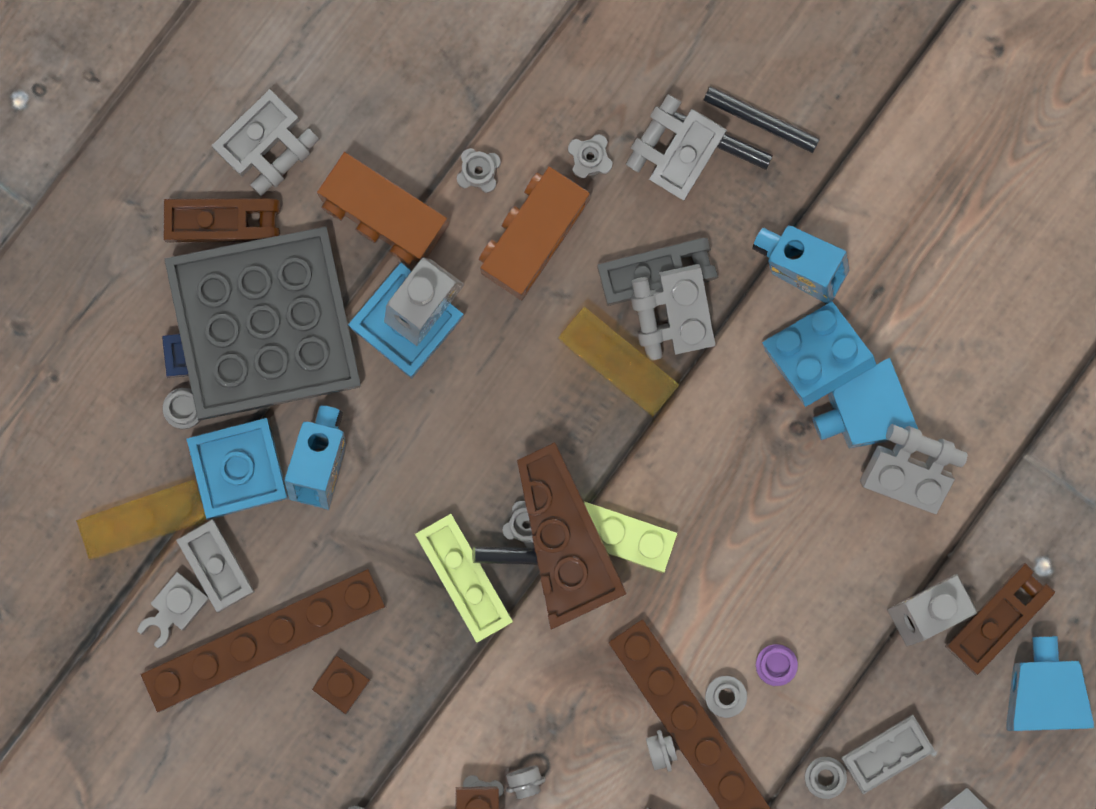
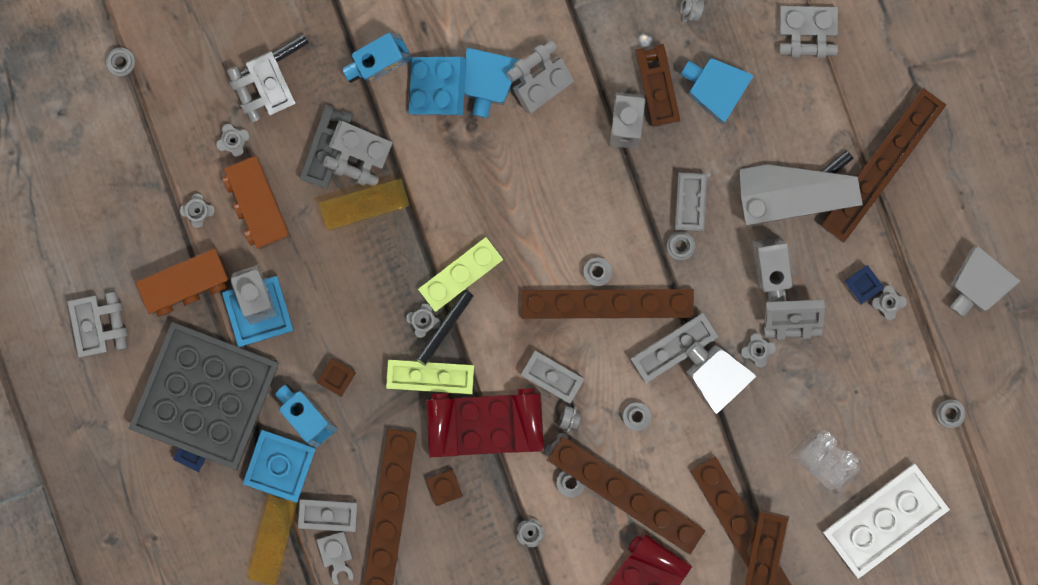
camera: 65 degrees left, 5 degrees up
(180, 409) = (222, 476): light grey plate -> none
(219, 220) = (125, 381): reddish brown plate -> none
(388, 466) = (336, 377): none -> reddish brown plate
(450, 683) = (485, 424): none -> dark red piece
(562, 727) = (552, 377): none -> light grey plate
(568, 548) = (455, 305): reddish brown wing -> none
(661, 751) = (603, 329): light grey plate -> none
(761, 119) = (277, 25): black bar -> none
(776, 665) = (599, 231): medium lavender plate -> none

